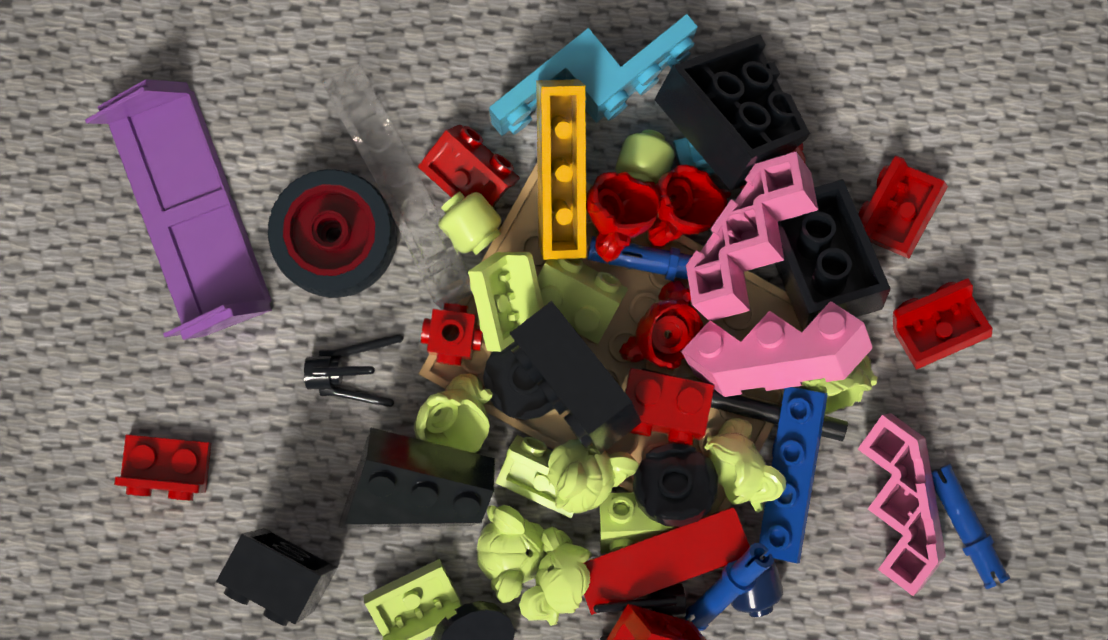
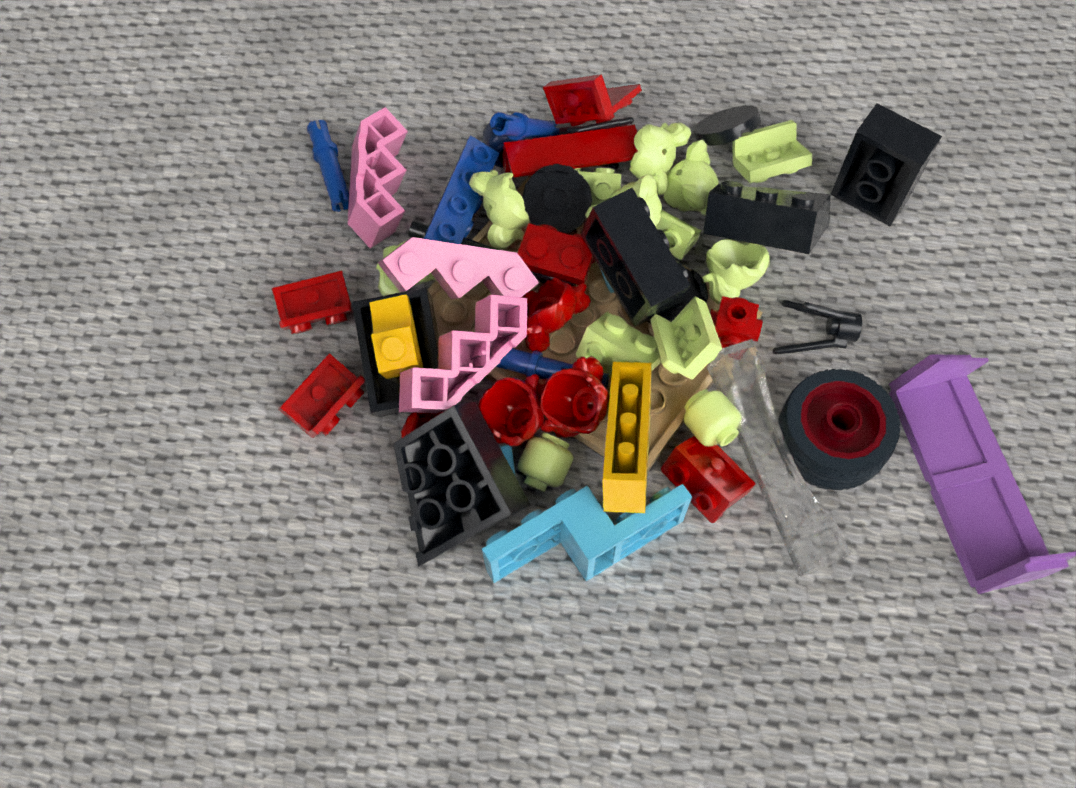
camera: 170 degrees left, 20 degrees down
(164, 465) = (978, 270): red bracket -> none
(831, 245) = (394, 336): none -> yellow arch

